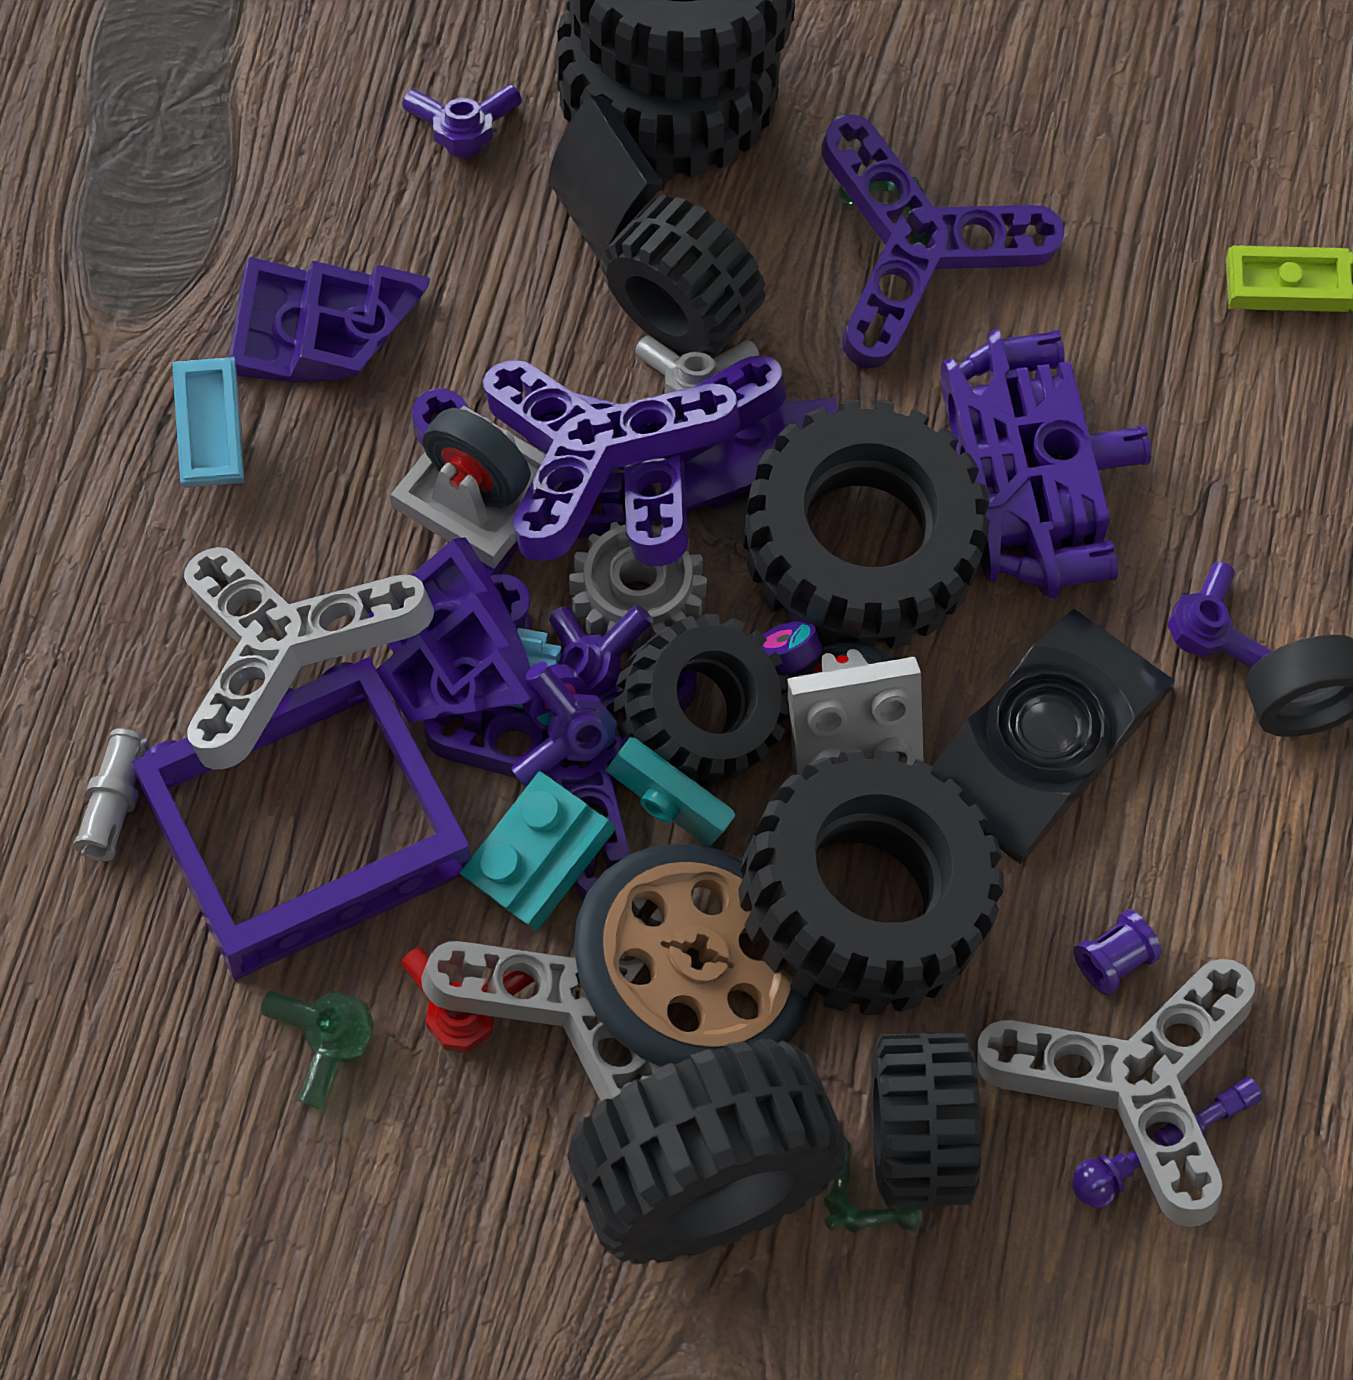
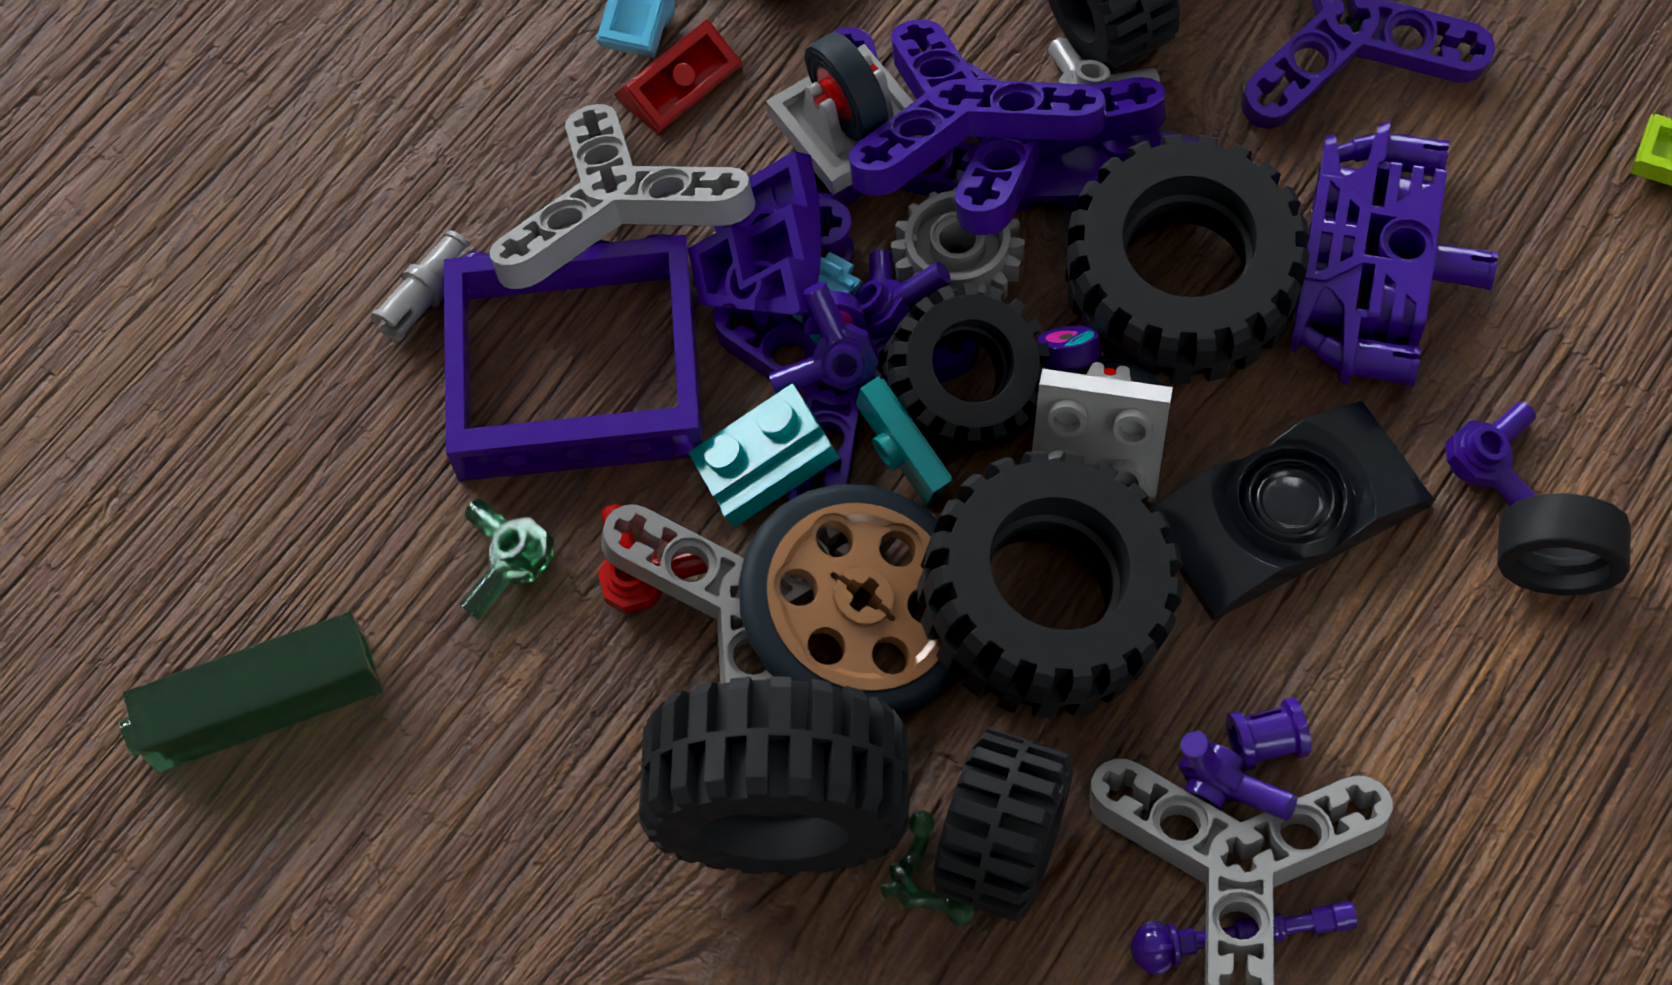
camera: 30 degrees right, 0 degrees up
(131, 1263) = (250, 693): none -> clear green brick
(274, 494) = (679, 77): none -> red slope
(1088, 1008) = (1216, 777): none -> dark purple piece

